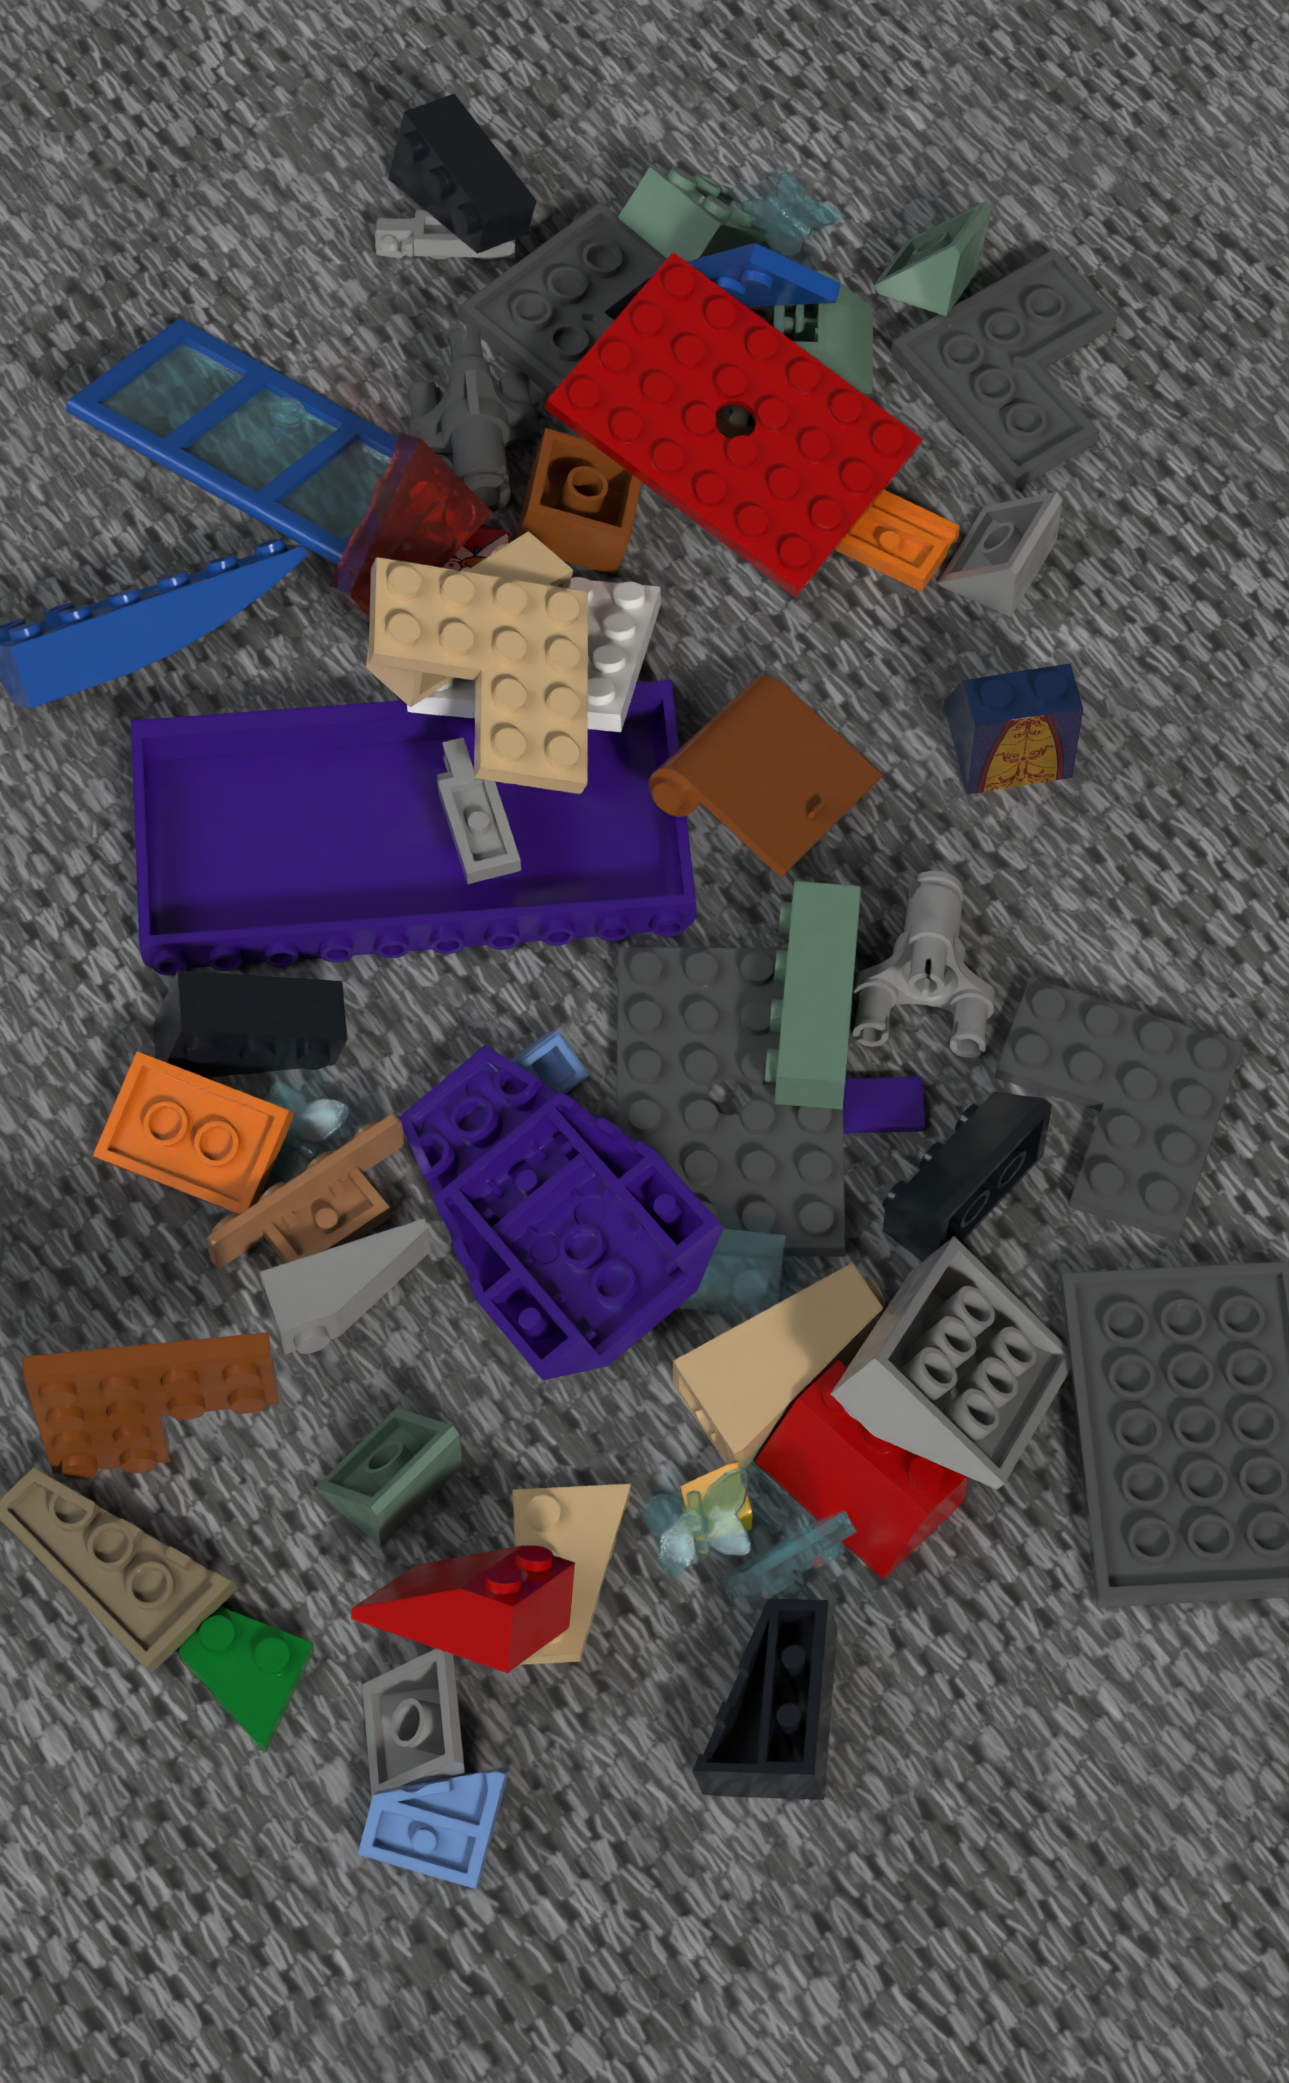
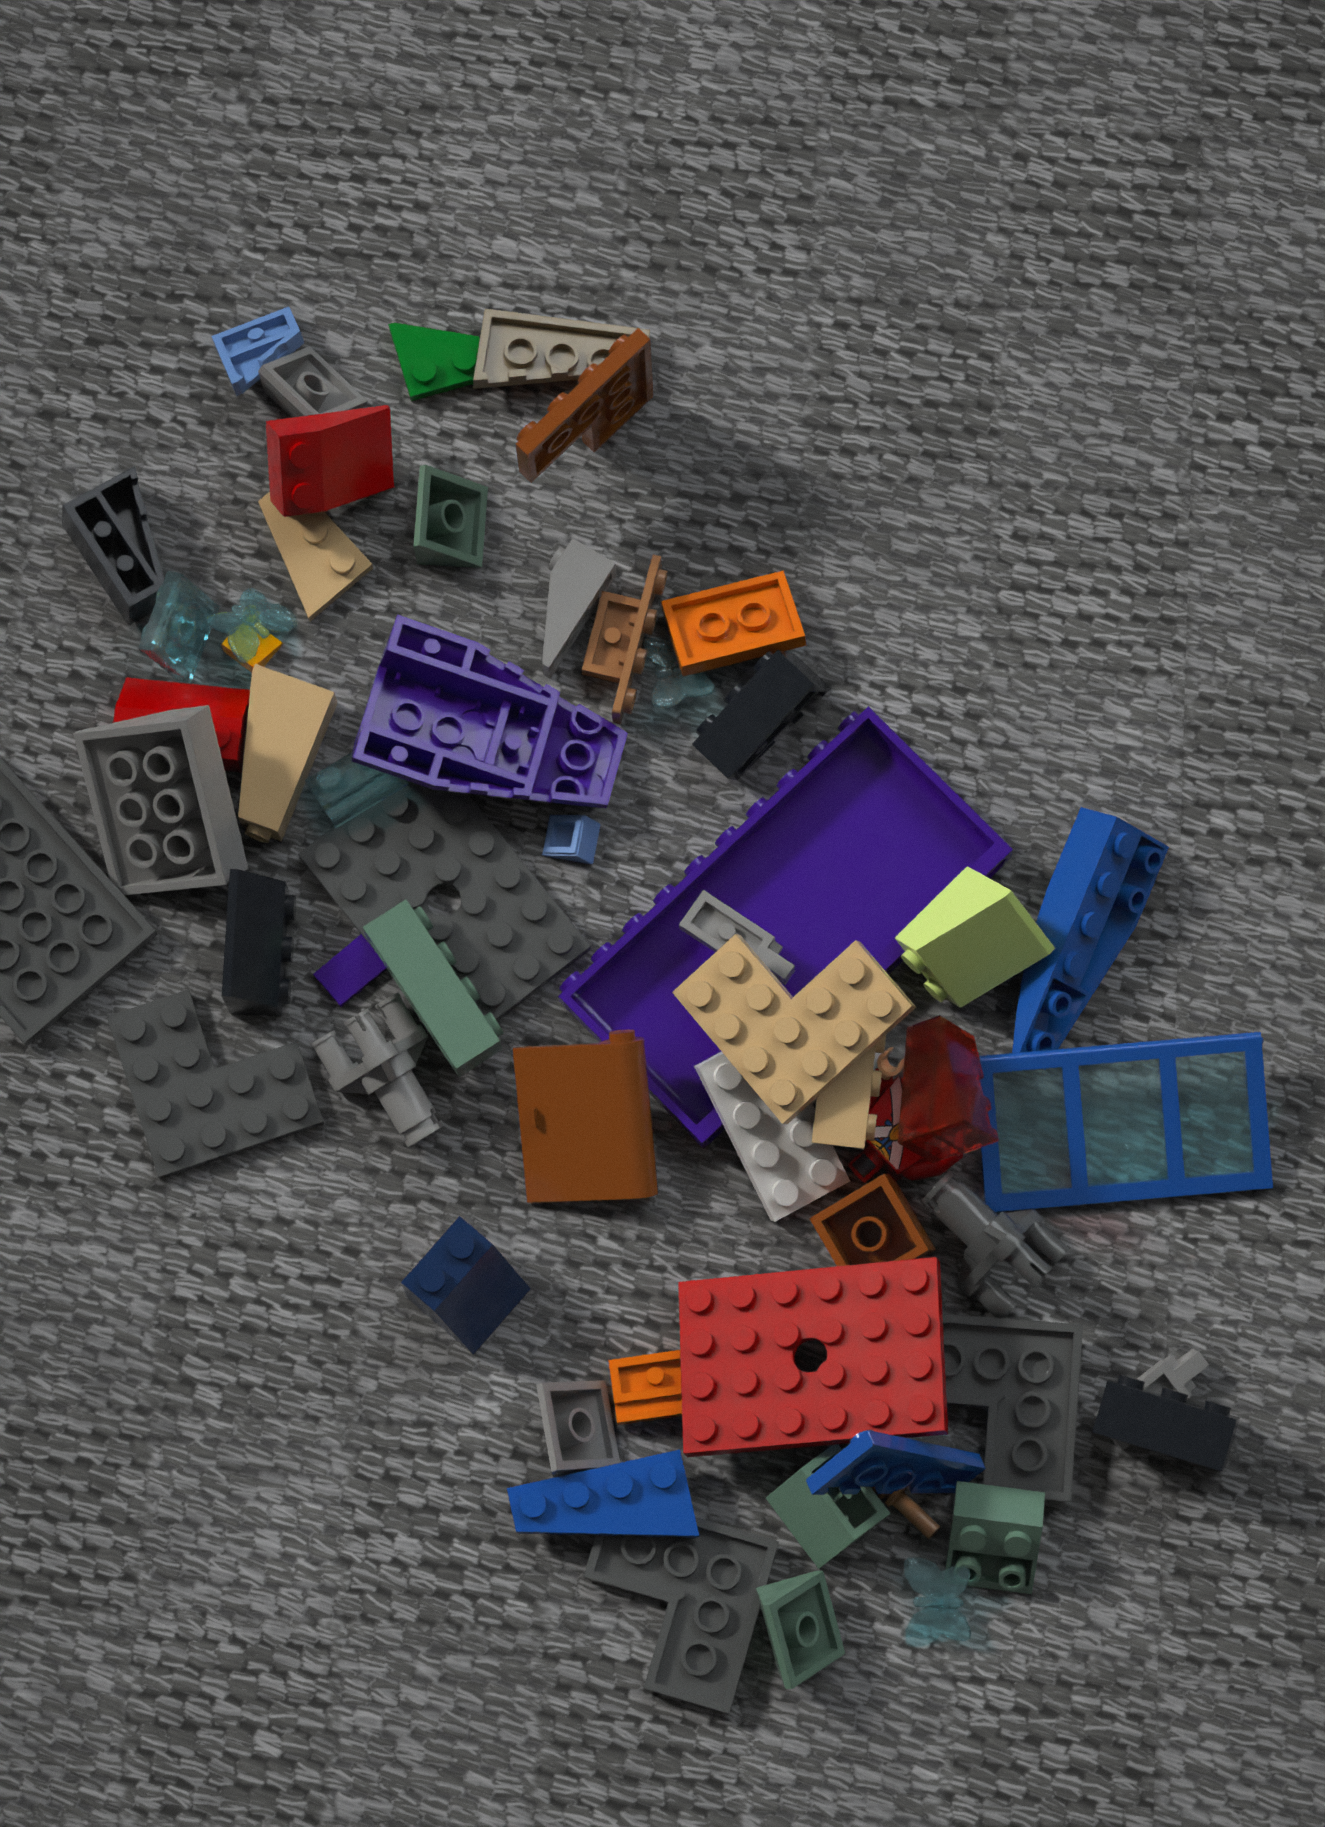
camera: 145 degrees right, 15 degrees up
(247, 663) = (971, 939): none -> yellowish green slope
(1016, 459) = (619, 1499): none -> blue wing

